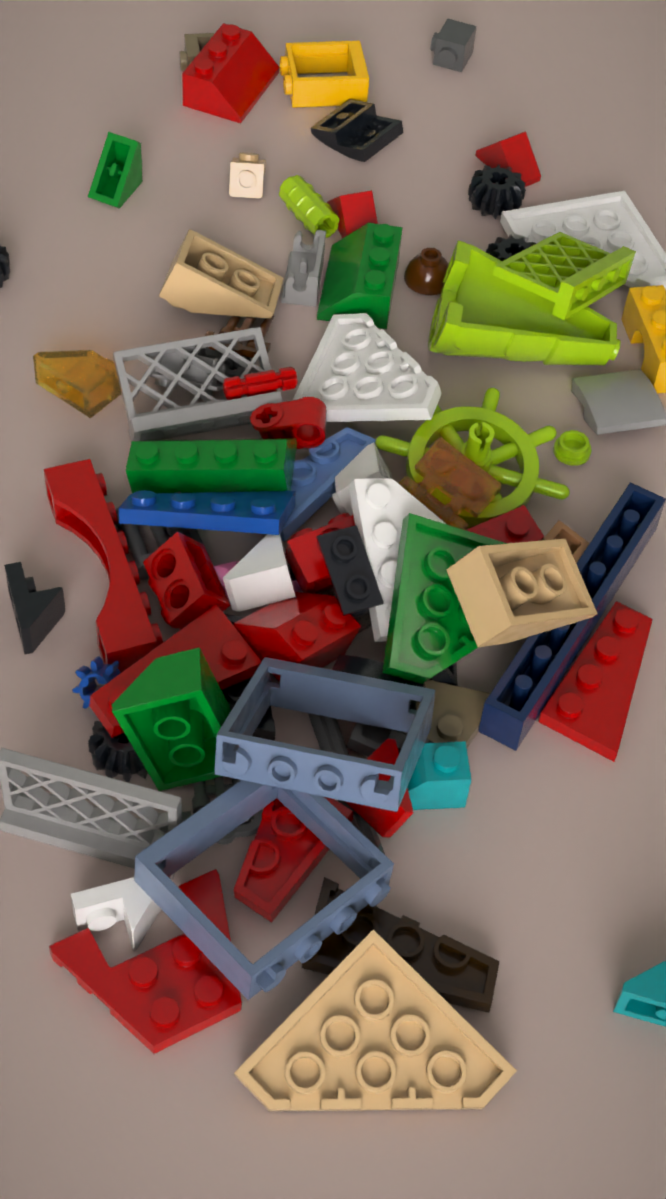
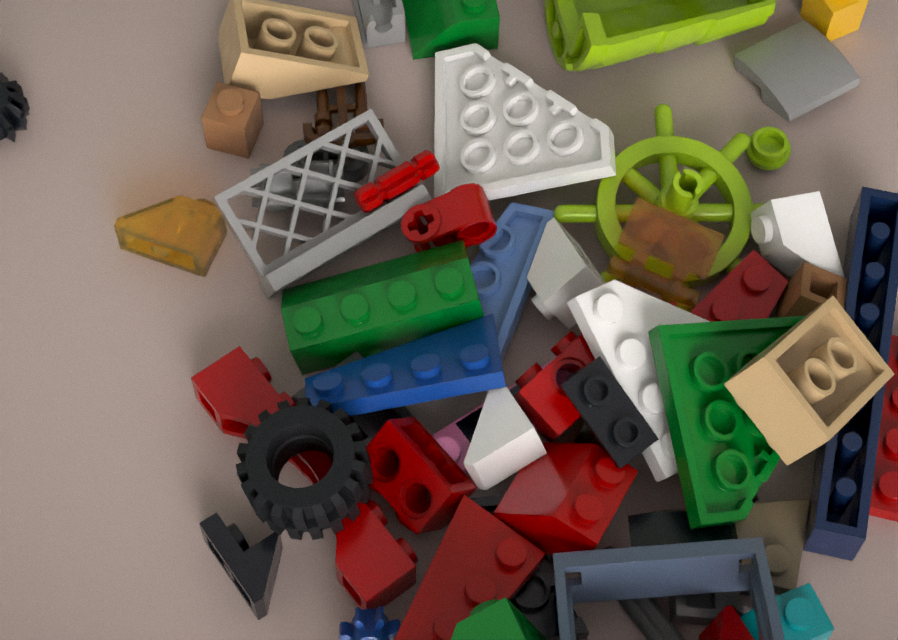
camera: 15 degrees left, 10 degrees up
(91, 519) = (297, 431): none -> black tyre
(156, 316) = (232, 120): none -> medium nougat brick
(562, 497) = (795, 232): none -> white slope

